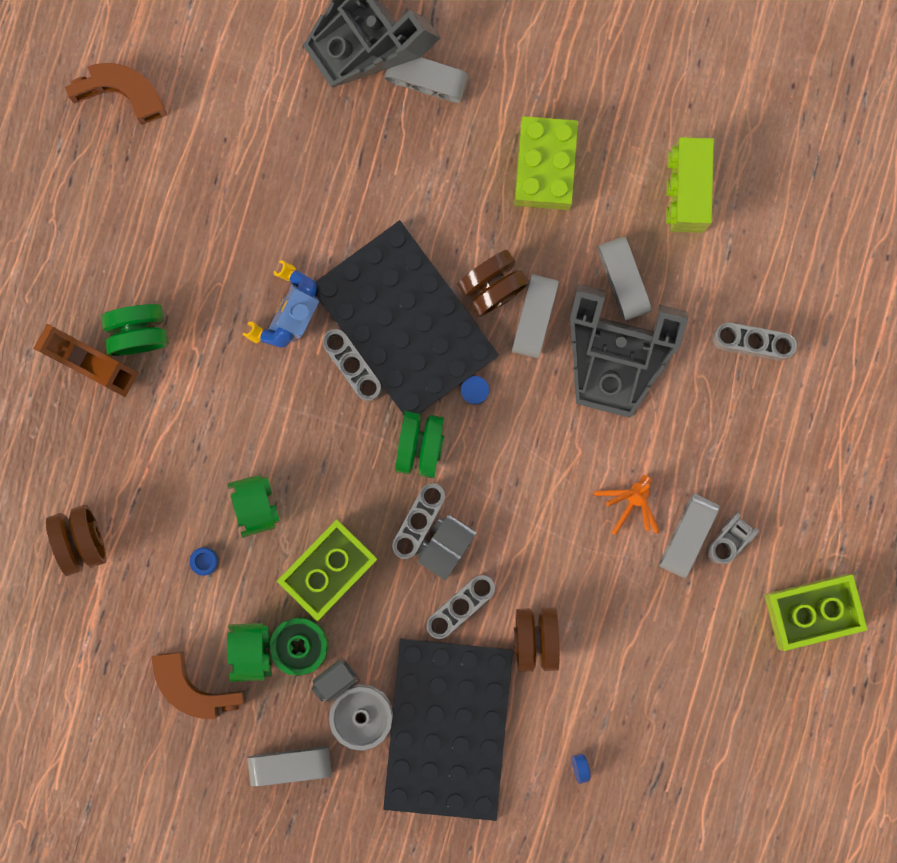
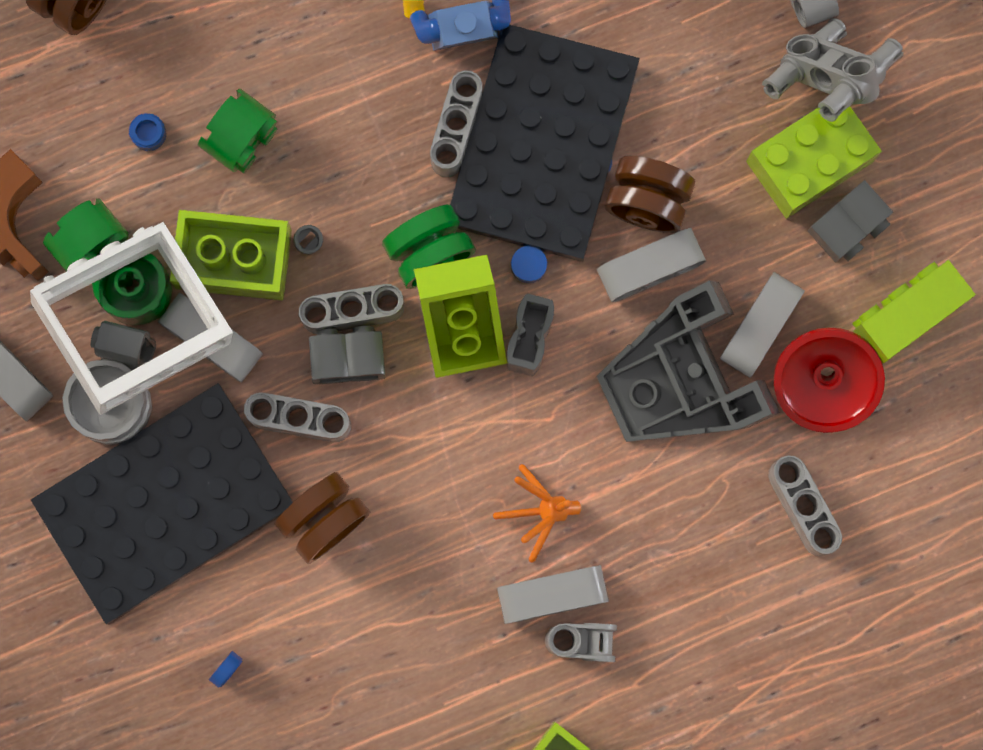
camera: 55 degrees right, 5 degrees down
(279, 644) = (111, 258): none -> white window
(358, 512) = (314, 245): none -> dark grey hinge
(368, 622) = (185, 323): none -> light grey beam
(480, 459) = (461, 315): none -> lime brick
(503, 108) = (832, 68): none -> light grey piece
(517, 419) = (532, 327): none -> dark grey brick
(604, 173) = (850, 221): none -> dark grey brick
(703, 272) = (833, 400): none -> red dish

